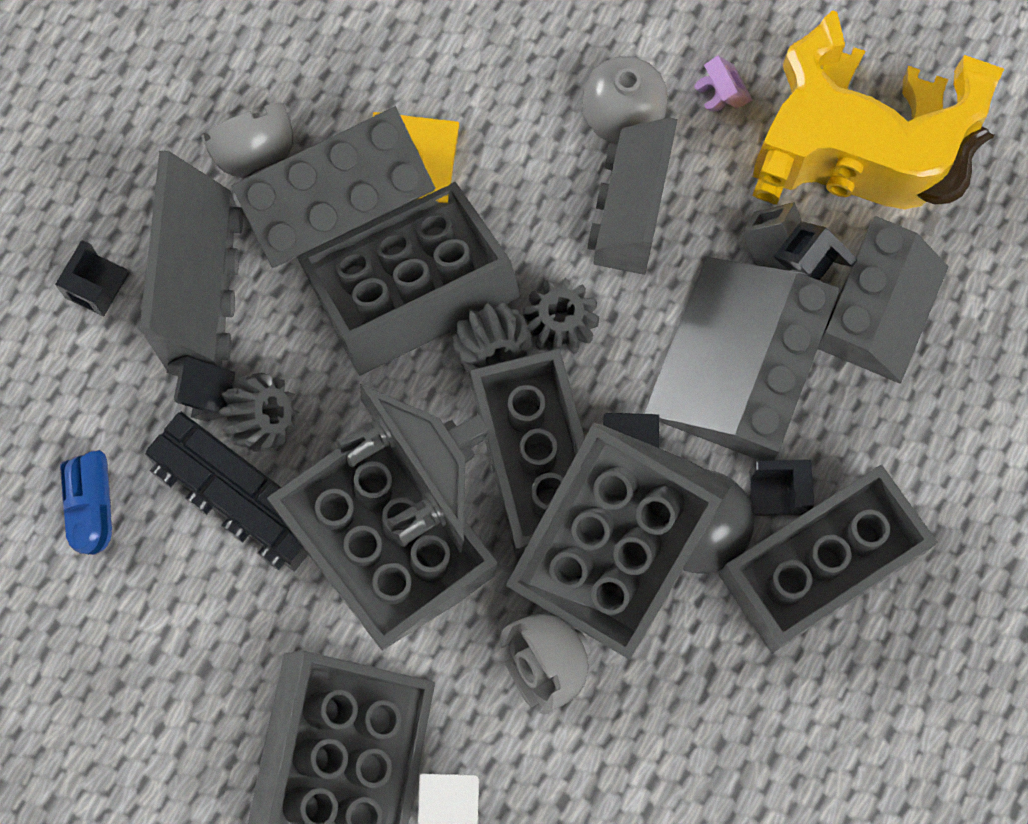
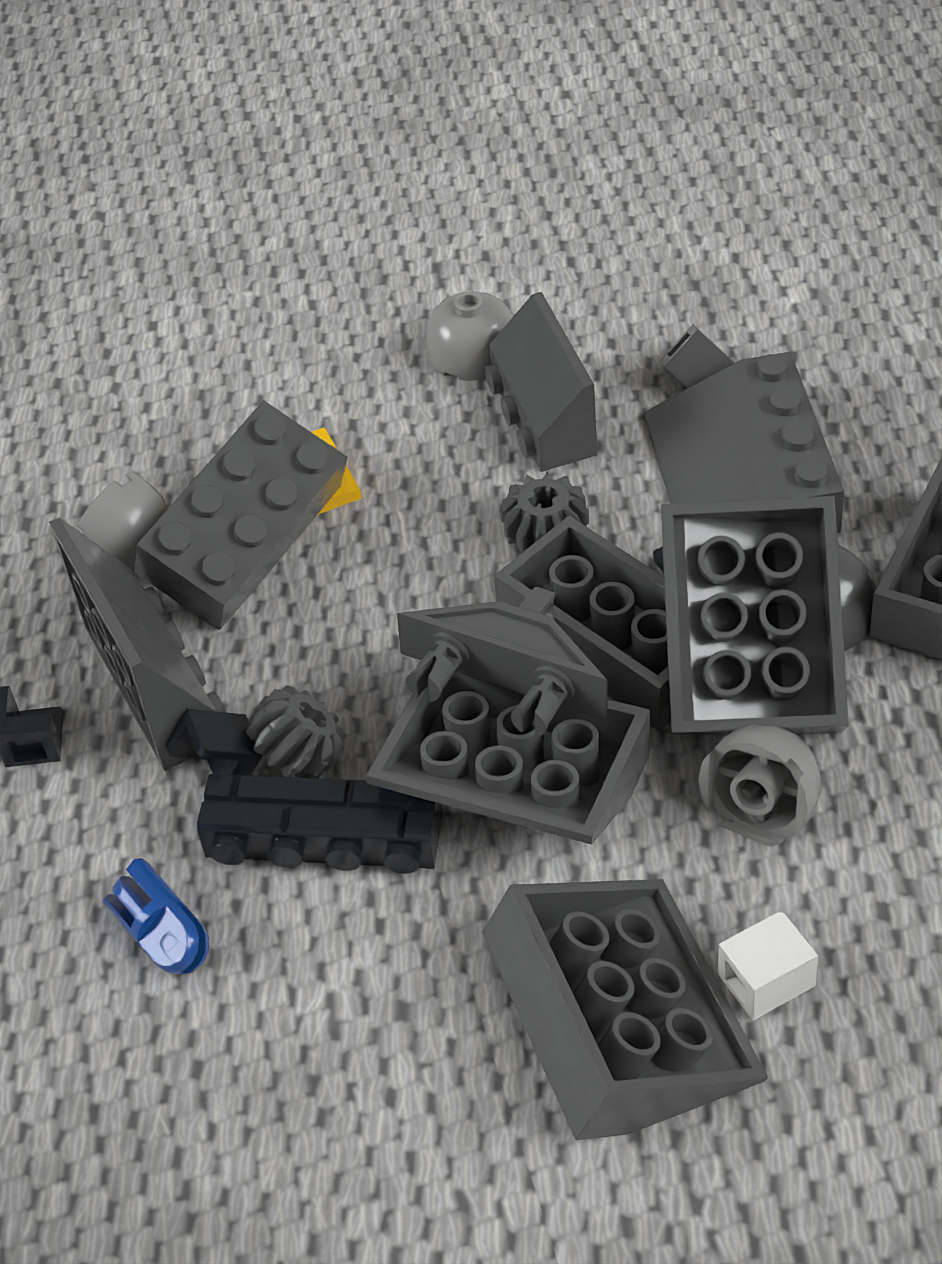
camera: 25 degrees left, 25 degrees down
(409, 277) = (370, 559): dark grey slope -> none
(491, 337) = (486, 548): dark grey gear -> none
(727, 85) = (557, 282): lavender tile -> none
(781, 487) = (871, 527): black panel -> none
(813, 250) = (744, 334): black panel -> none
(865, 145) = (721, 252): yellow piece -> none
(884, 301) = (834, 355): dark grey slope -> none

